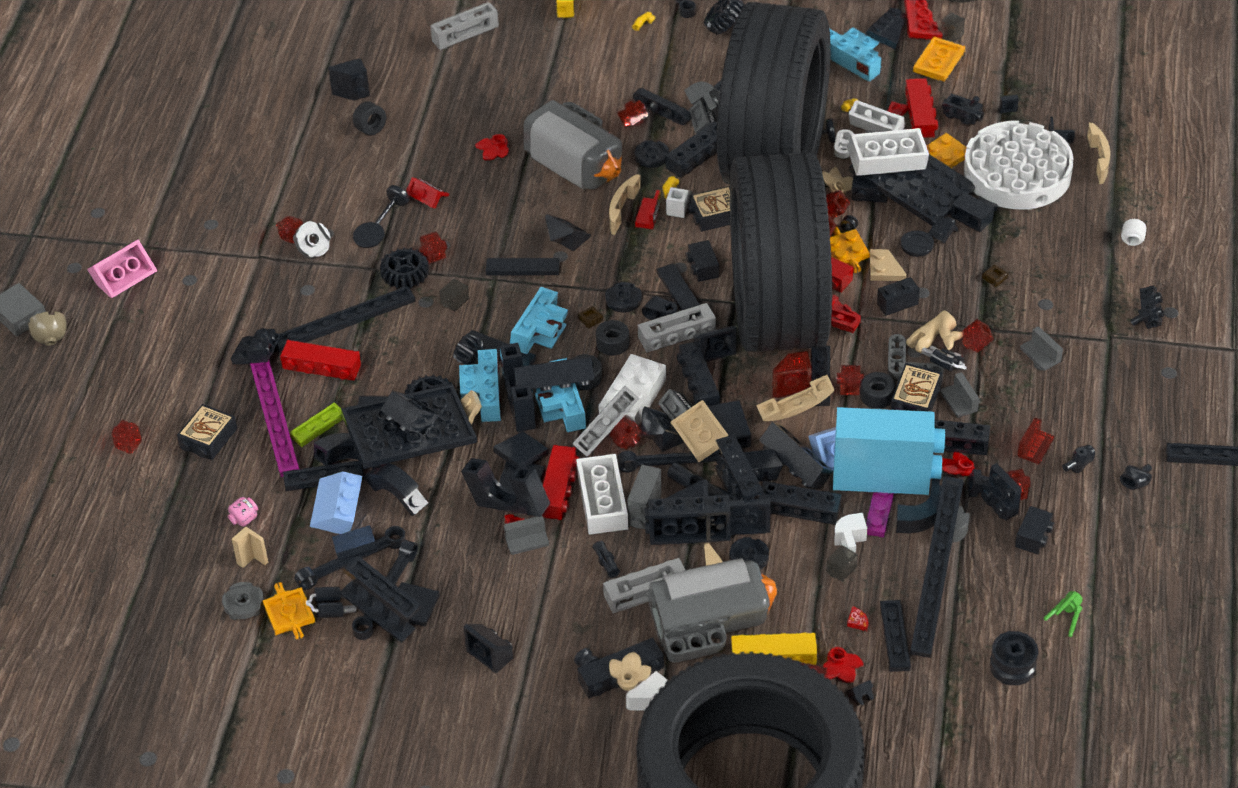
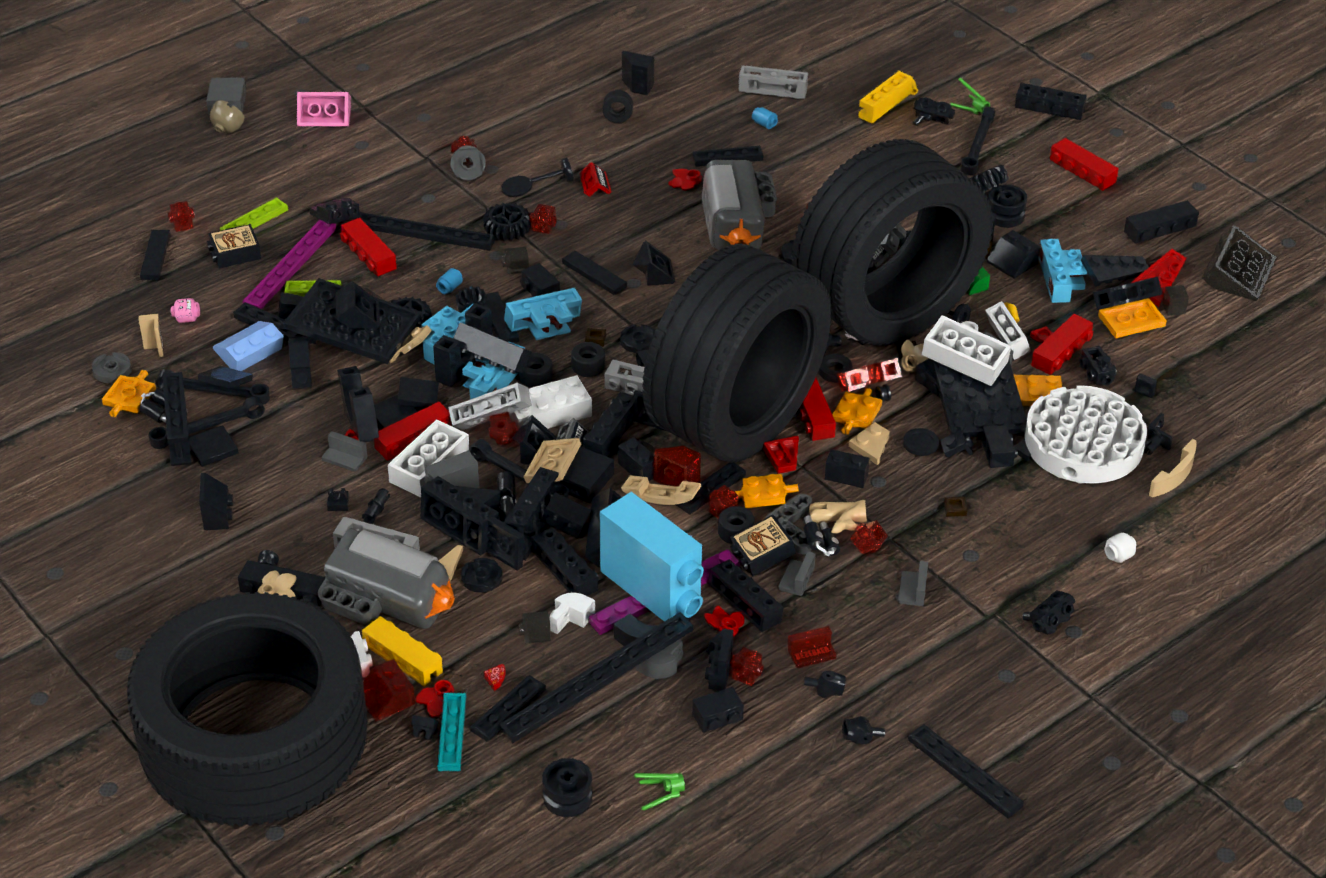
camera: 40 degrees right, 5 degrees down
(143, 484) = (155, 255): none -> black tile
(186, 398) = (259, 215): none -> lime tile
(424, 346) = (449, 281): none -> dark azure brick
(492, 59) = (764, 117): none -> dark azure brick
(497, 301) = (539, 280): none -> black brick
(500, 108) = (749, 153): none -> black tile
(570, 576) = (338, 500): none -> black tile
(751, 388) = (637, 458): none -> black slope
(863, 350) = (765, 490): none -> light orange plate
(883, 681) = (452, 732): none -> teal tile
(915, 44) = (1127, 293): none -> black arch

